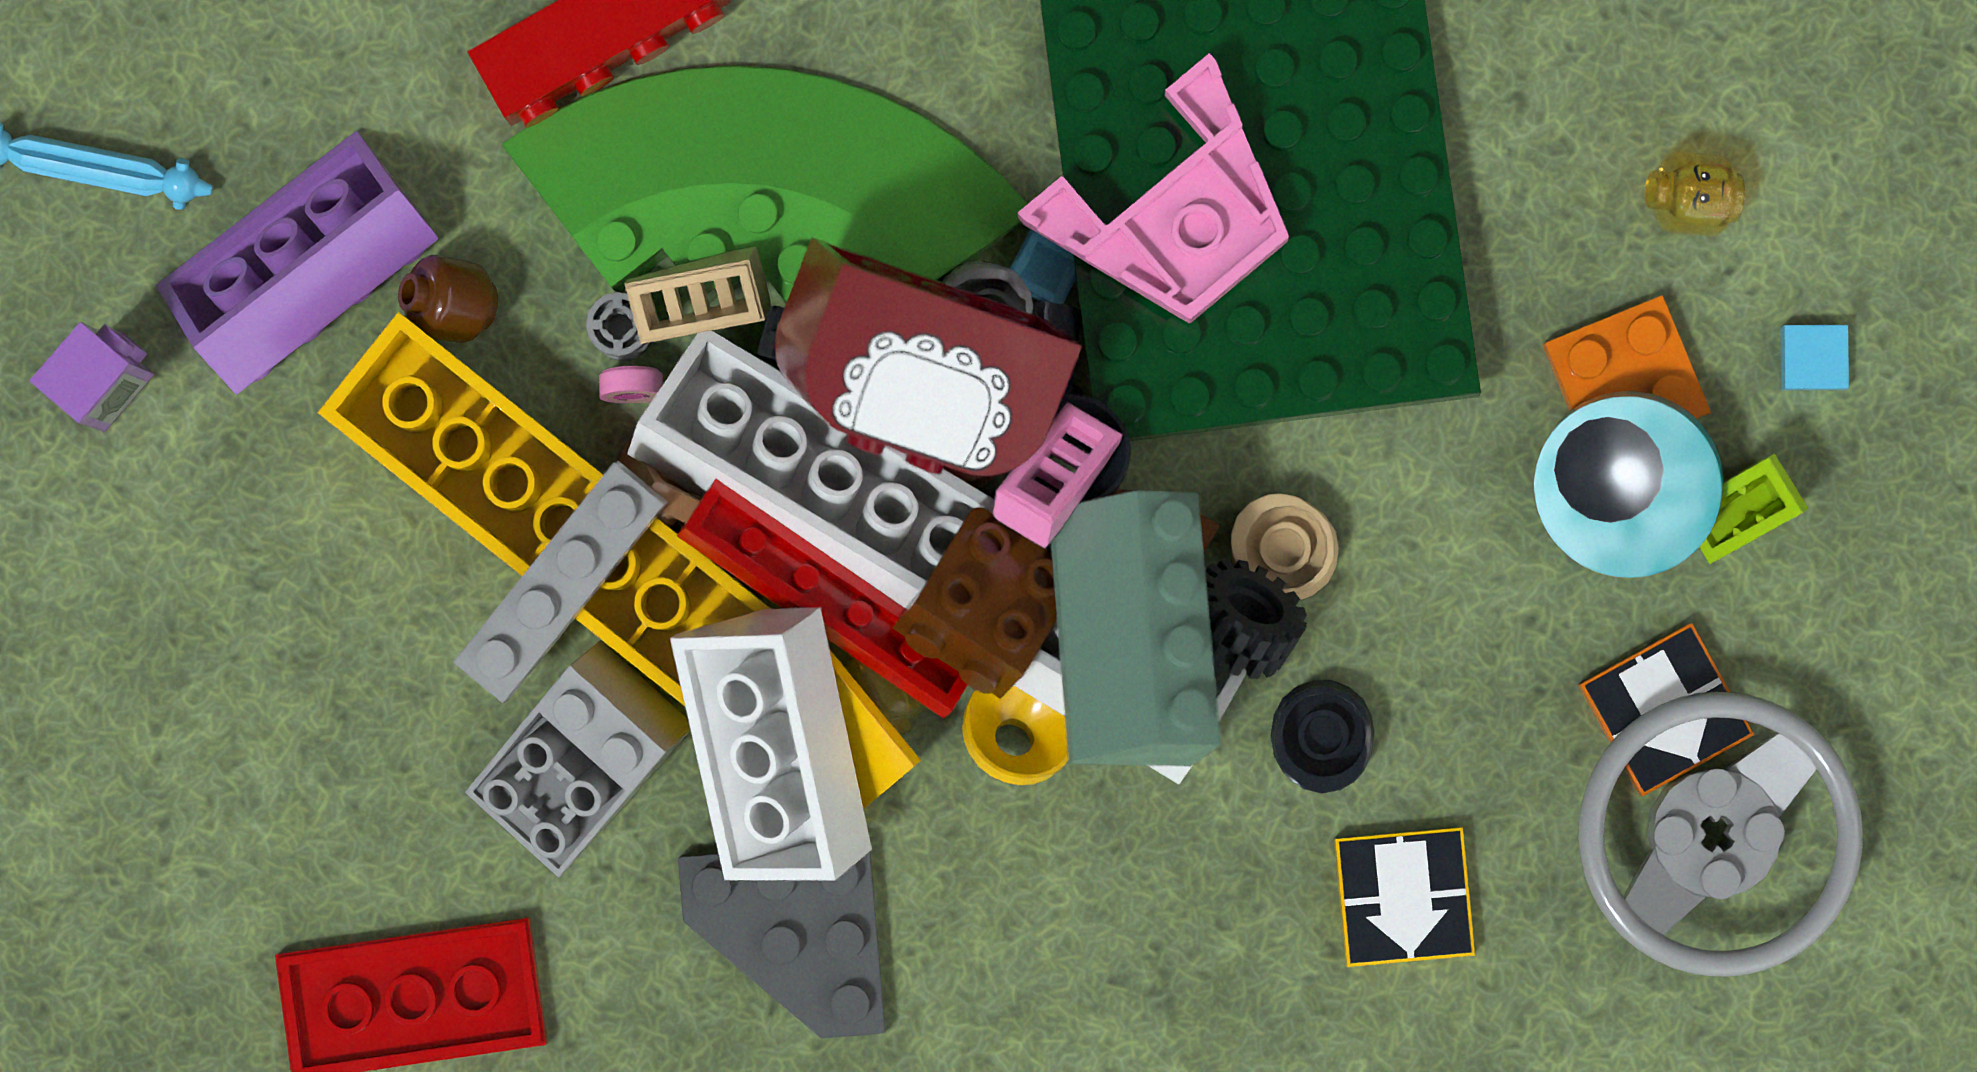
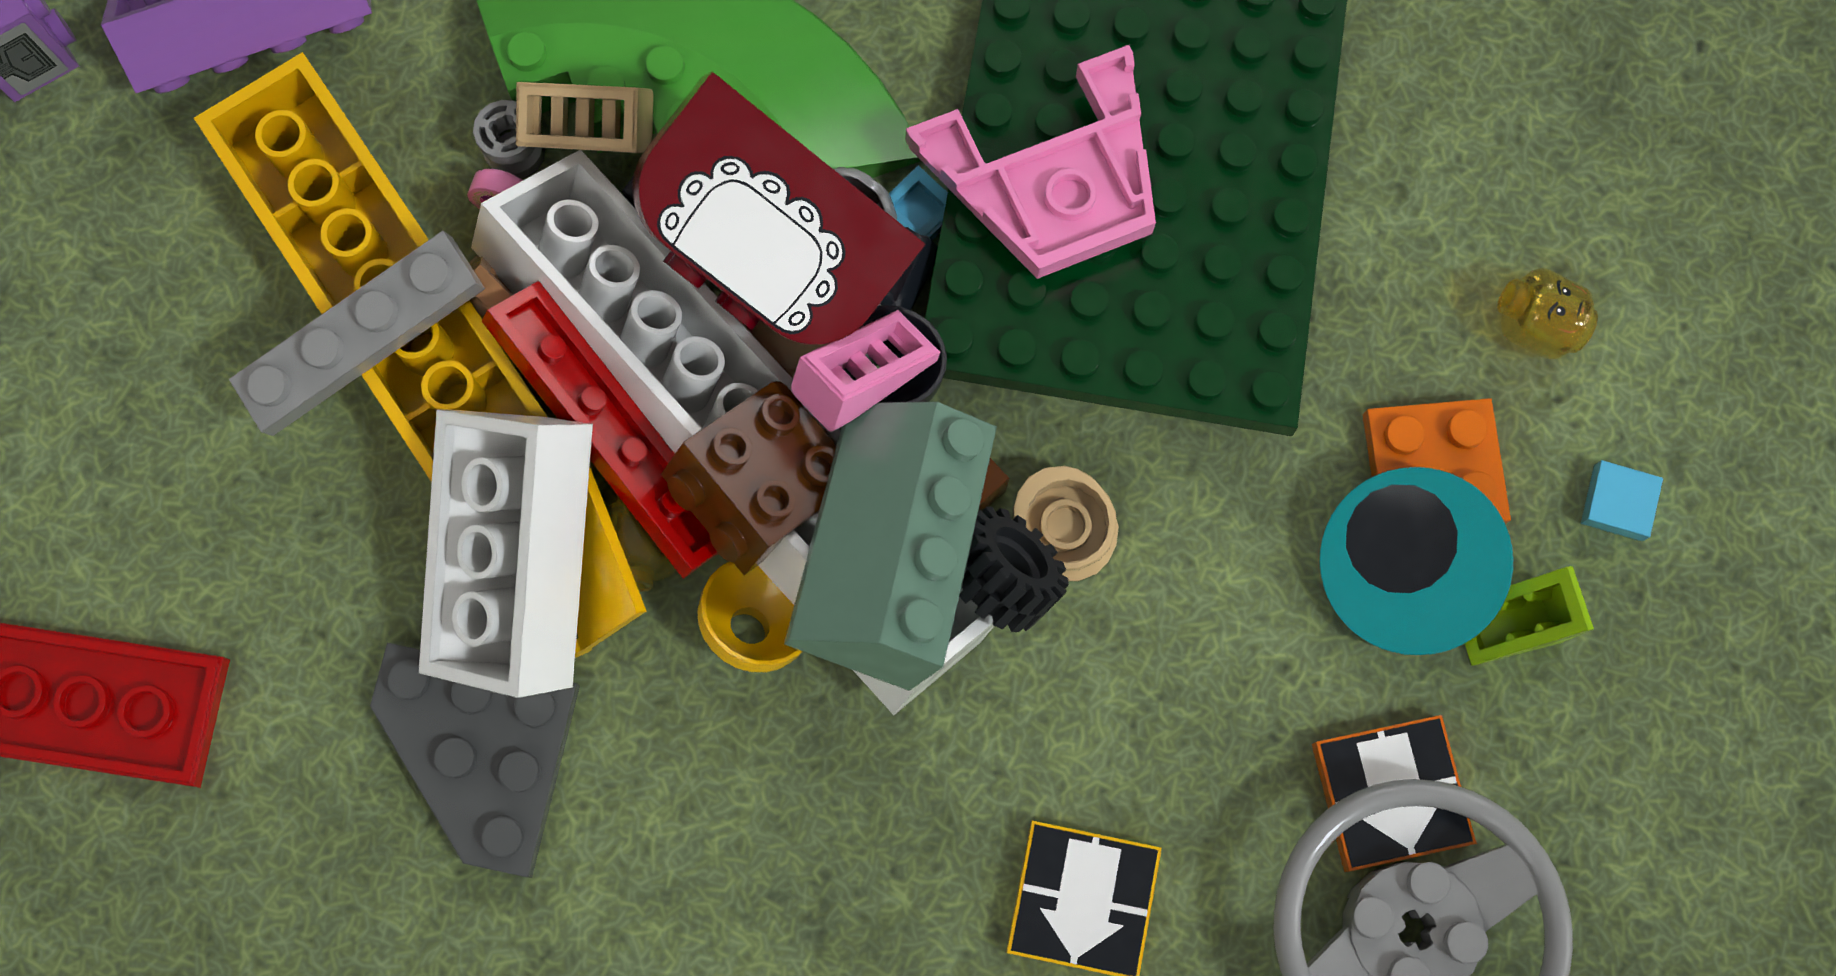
camera: 10 degrees right, 10 degrees down
(448, 298) = (360, 66): reddish brown head -> none
(579, 757) = (327, 516): light grey slope -> none
(1322, 736) = (1049, 716): black piece -> none

